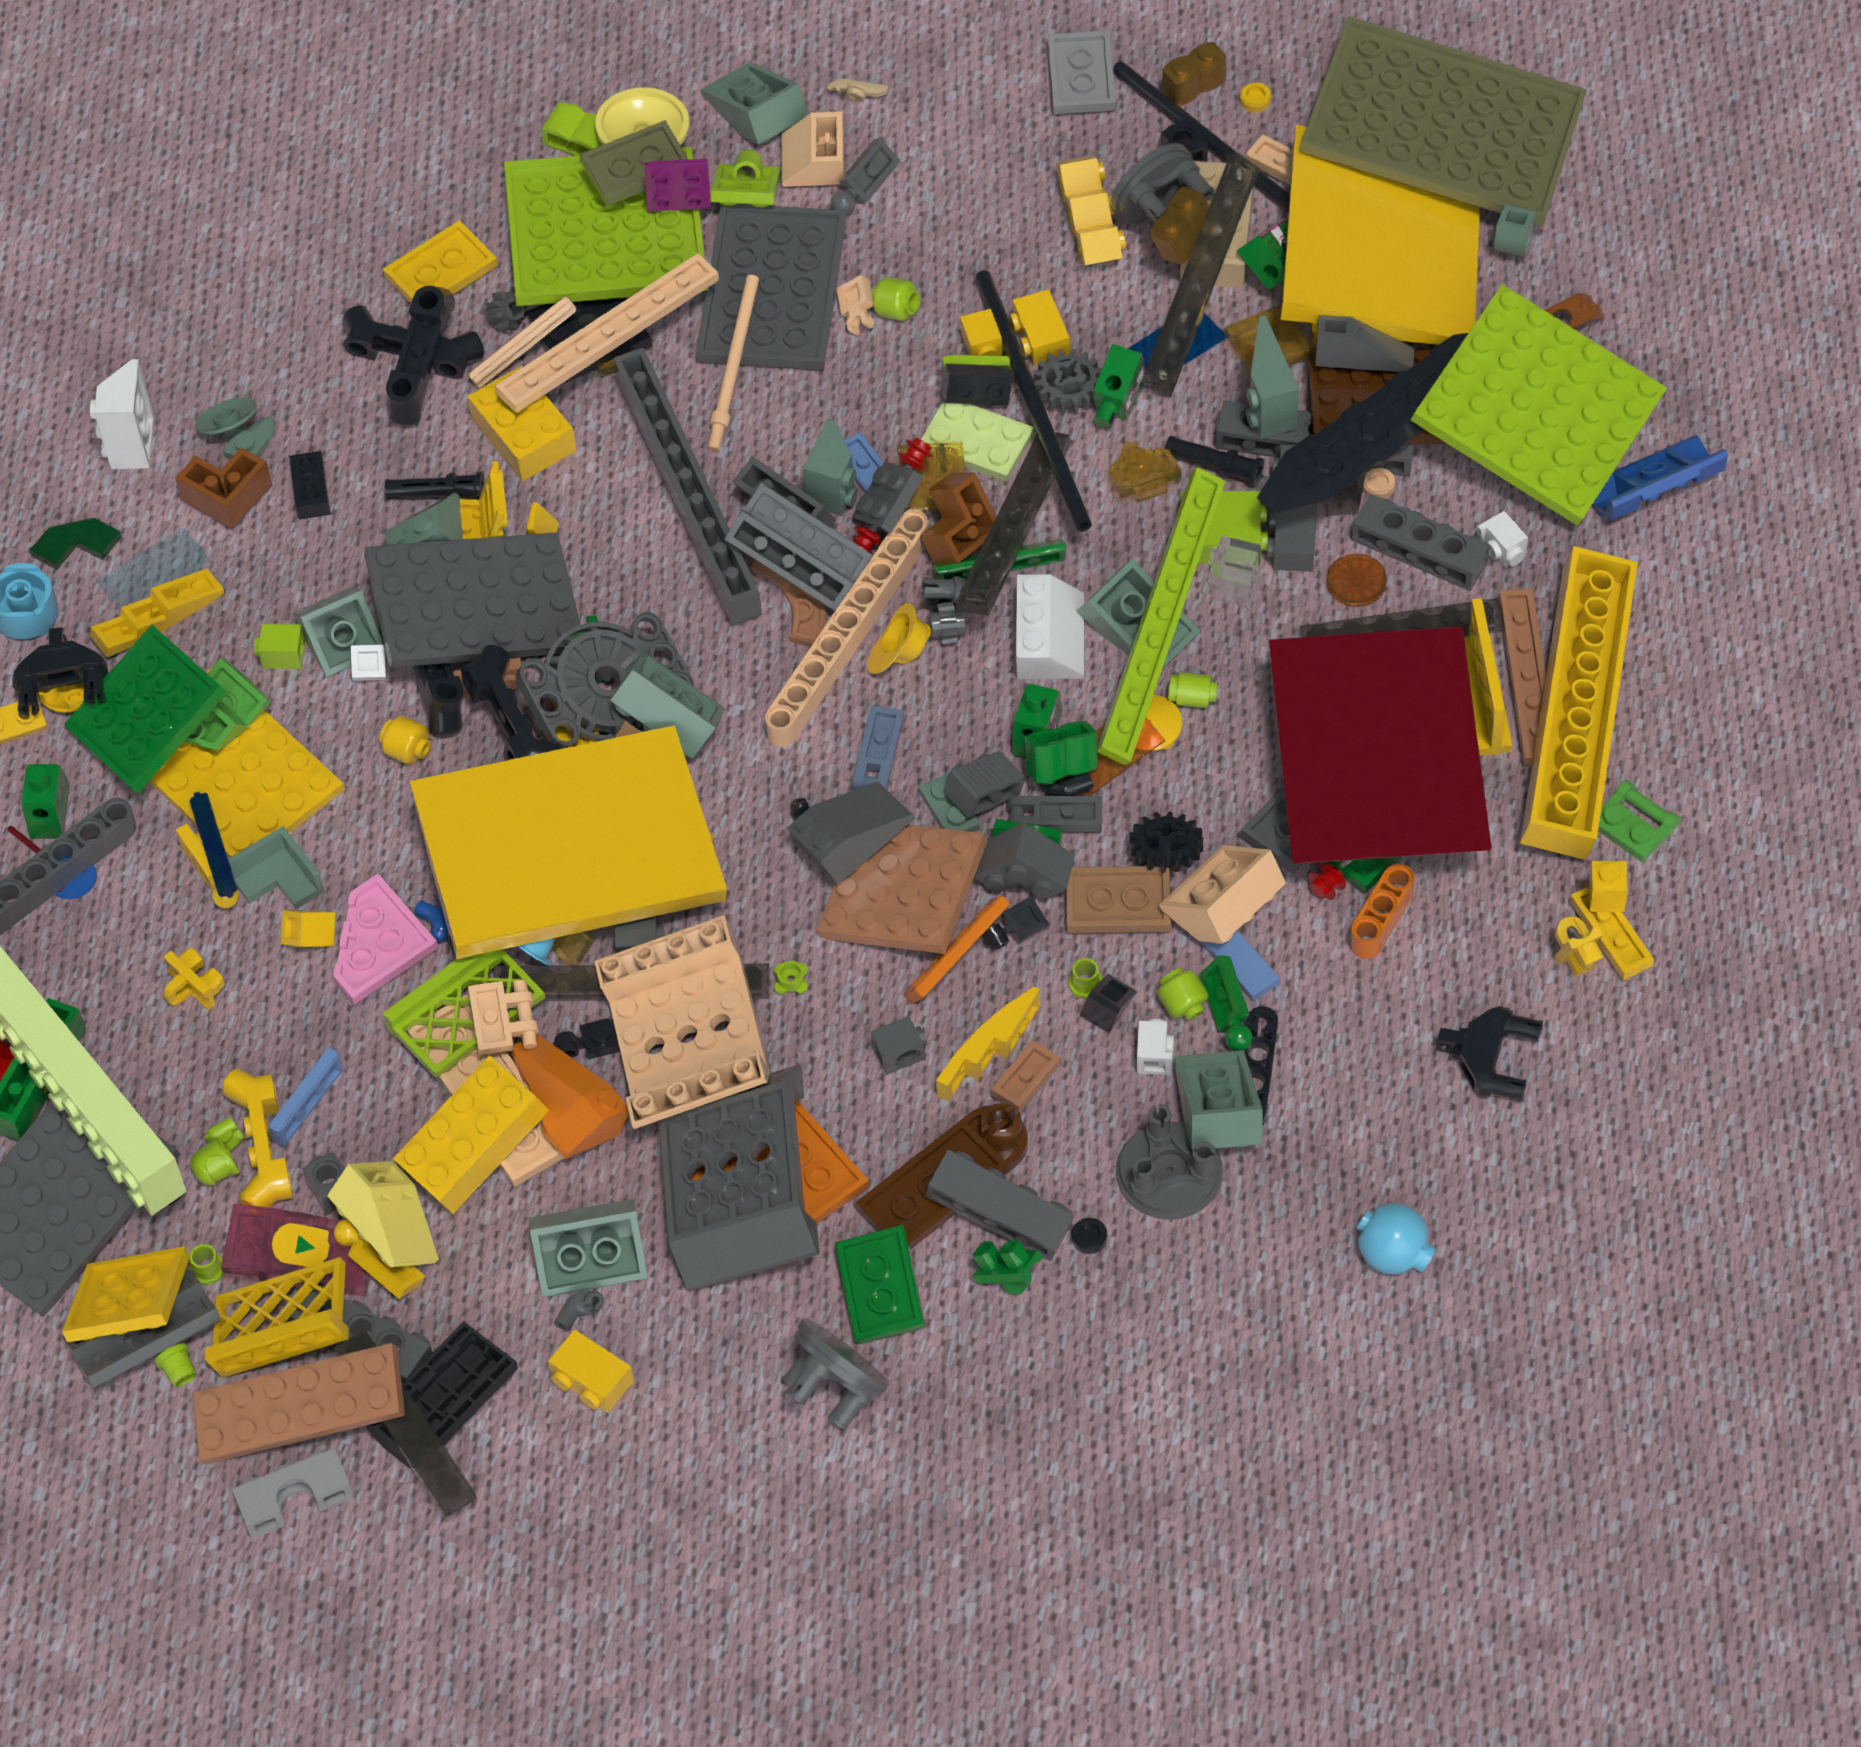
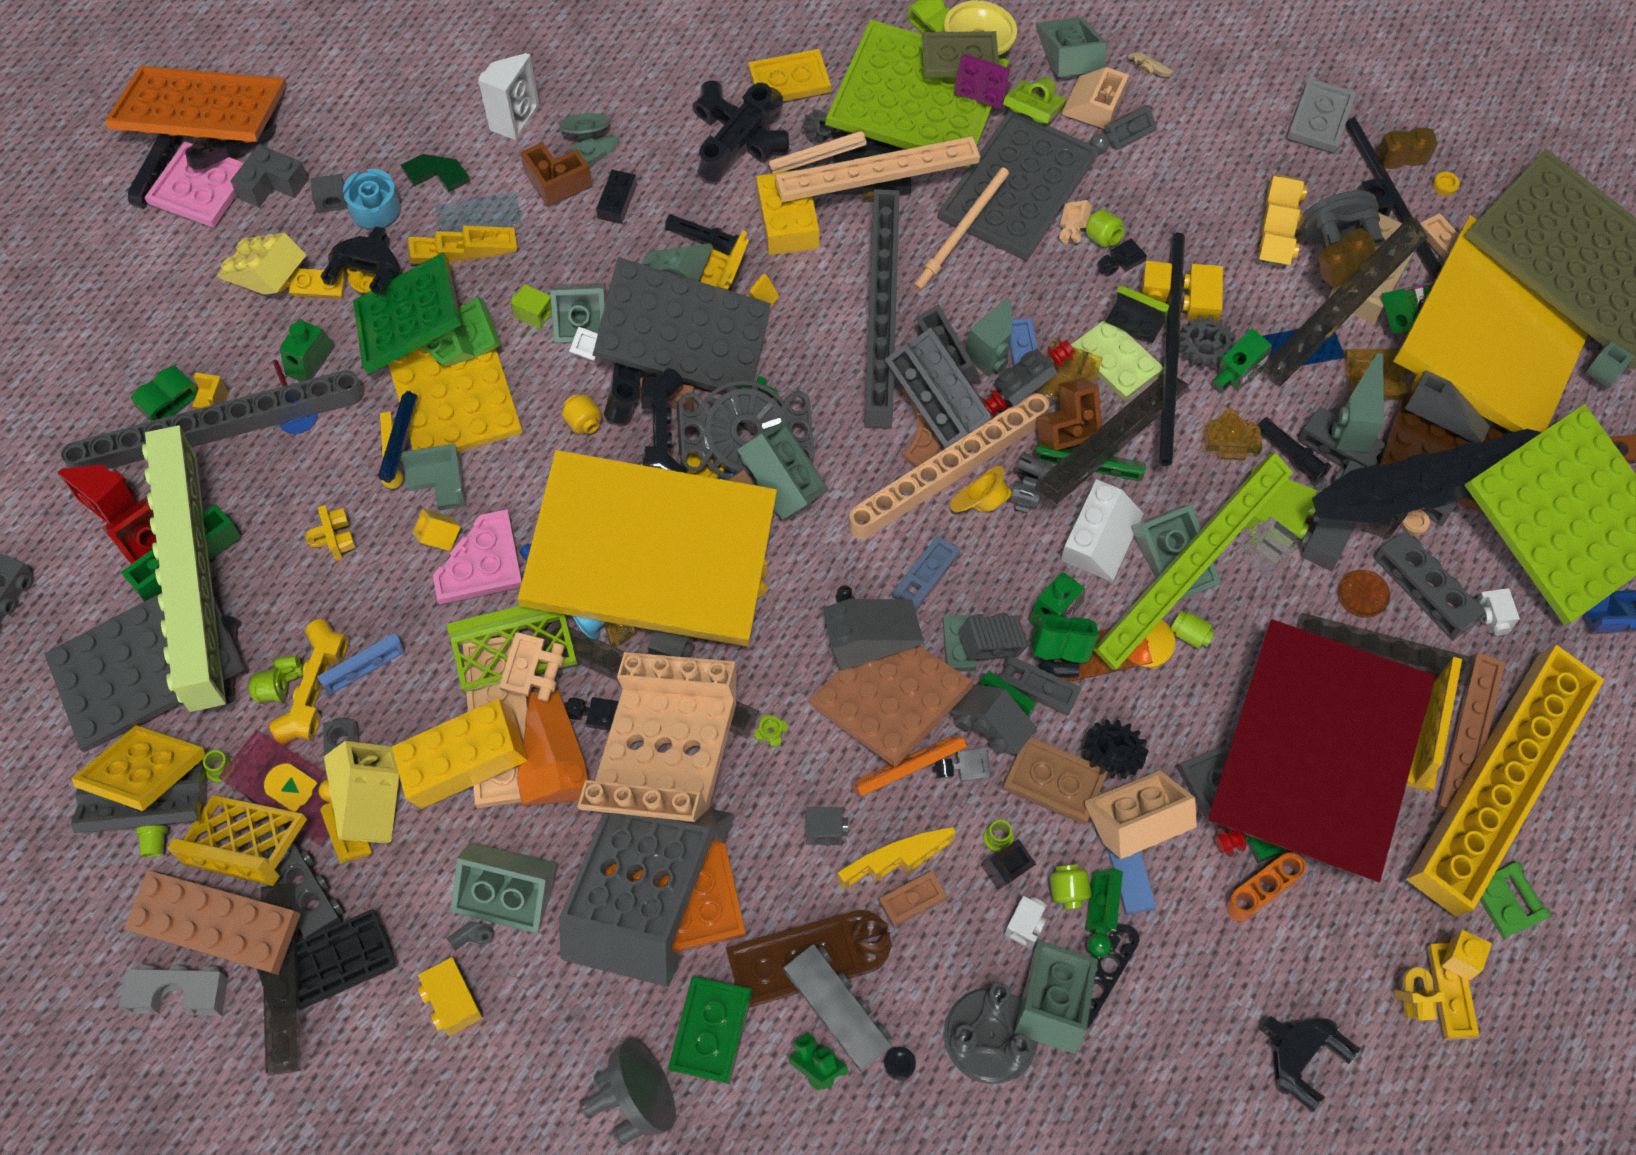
camera: 20 degrees right, 5 degrees up
(931, 320) = (1124, 255): none -> black plate

